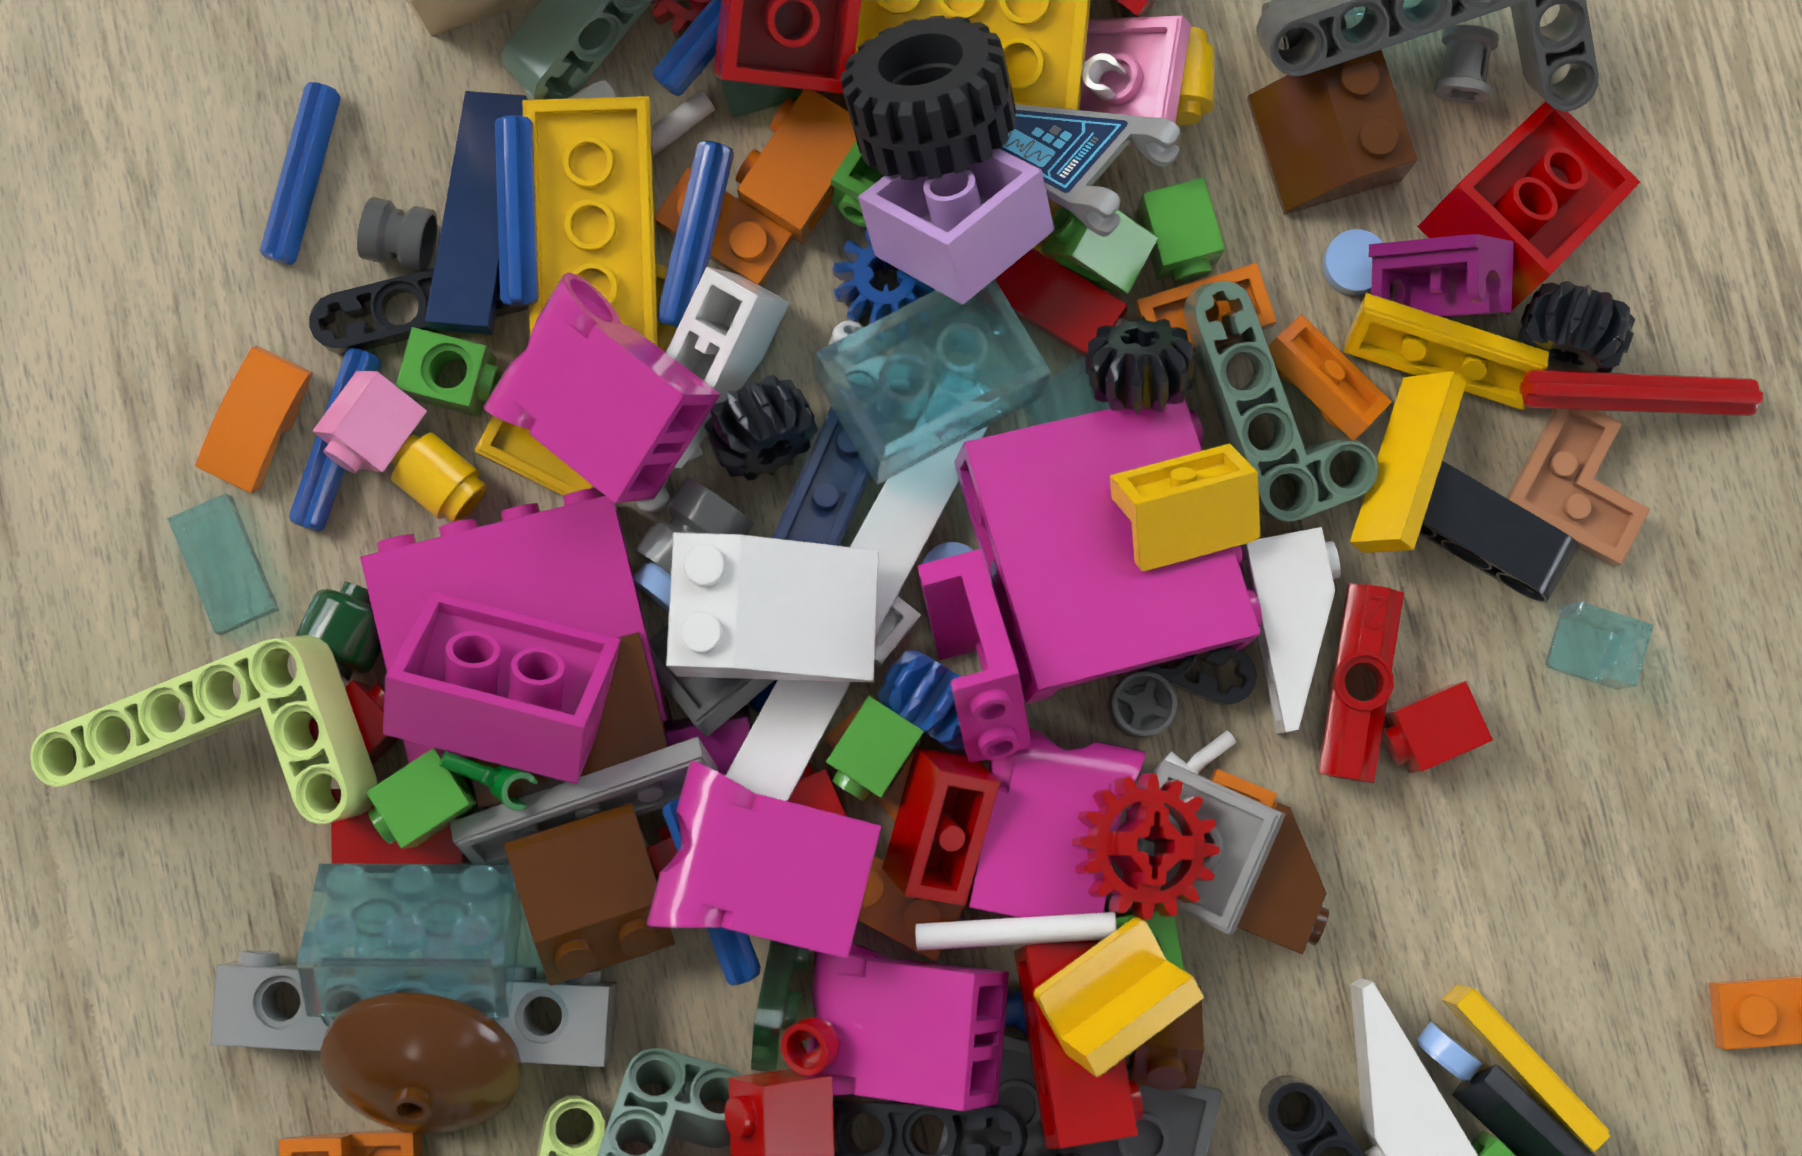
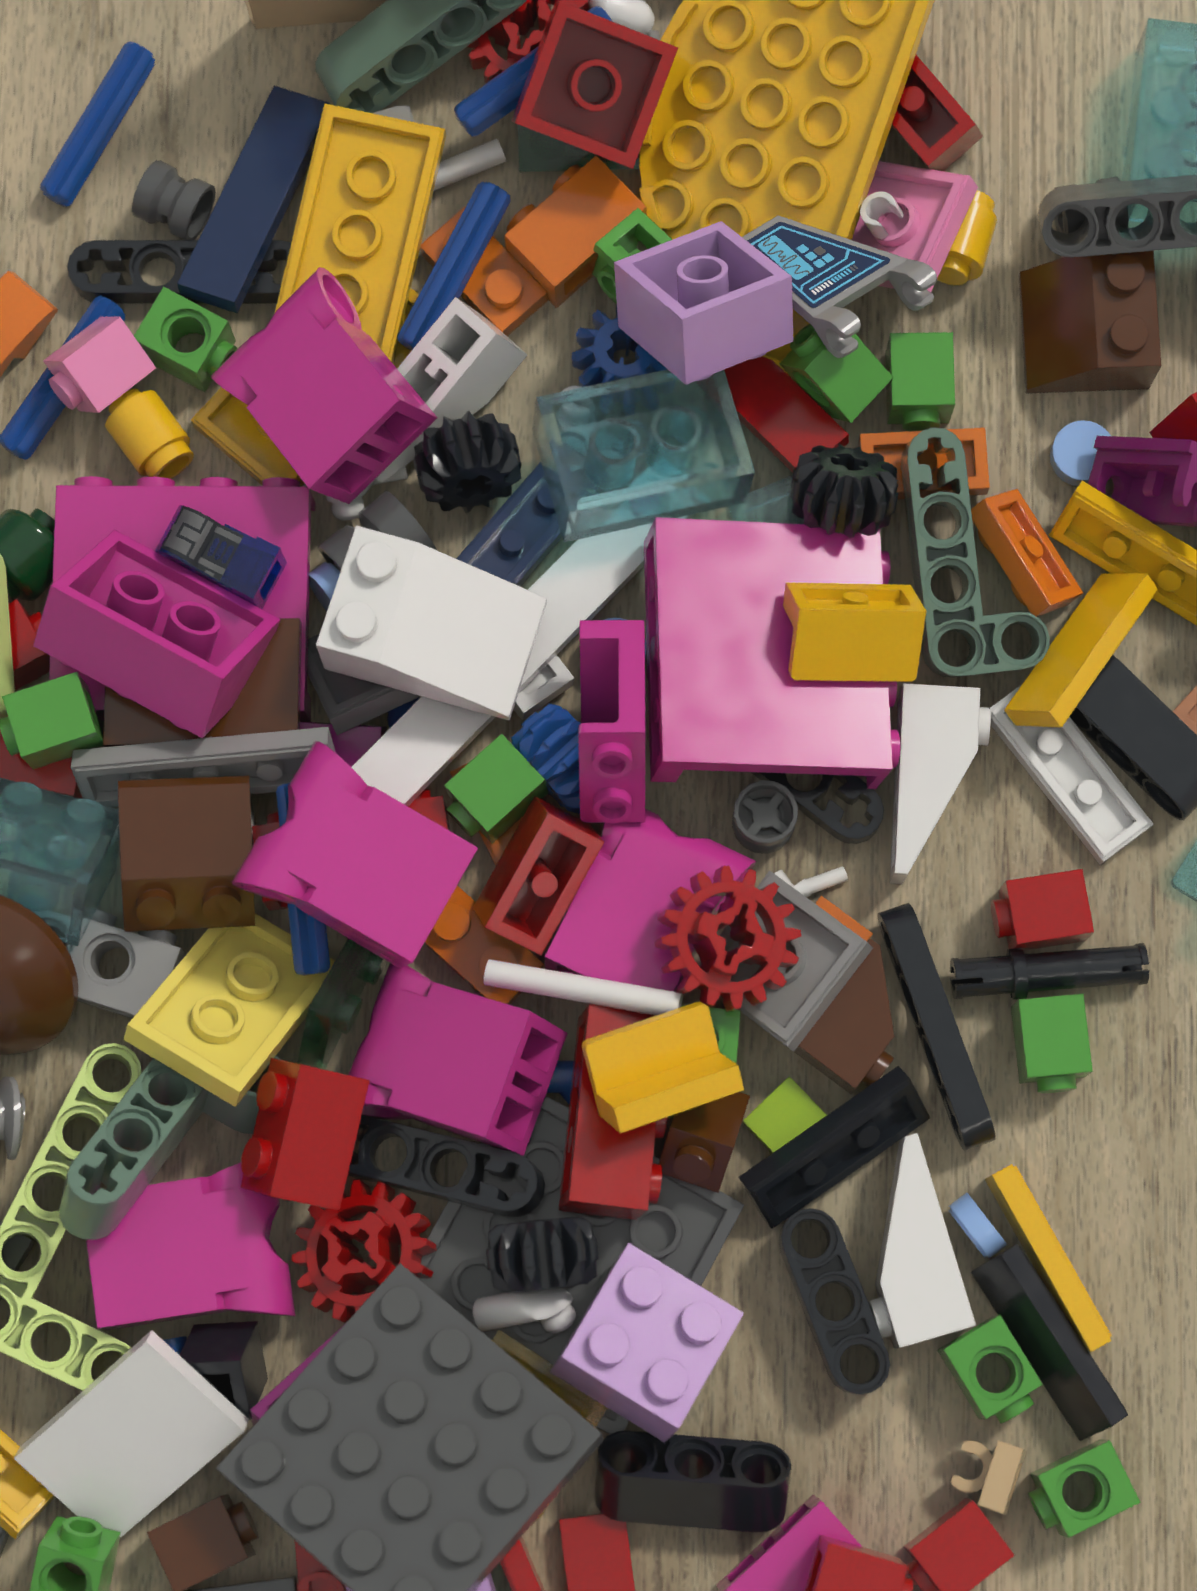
camera: 15 degrees right, 5 degrees down
(496, 779) = (120, 711): green hand -> none
(516, 210) = (291, 203): blue axle -> none
(545, 589) = (223, 555): none -> leg
(671, 1037) = (226, 1008): none -> light yellow plate
(816, 1059) = (354, 1032): red hinge -> none
(929, 97) = (705, 187): black tyre -> none
(1241, 996) = (783, 1115): none -> lime tile
(1294, 1011) = (834, 1147): none -> black tile
(1360, 867) = (936, 1026): none -> black beam
(1366, 640) = (997, 813): red piece -> none
(1430, 792) = (1025, 973): none -> black pin
(1433, 590) = (1075, 782): none -> white tile
(1475, 854) = (1051, 1041): none -> bright green brick

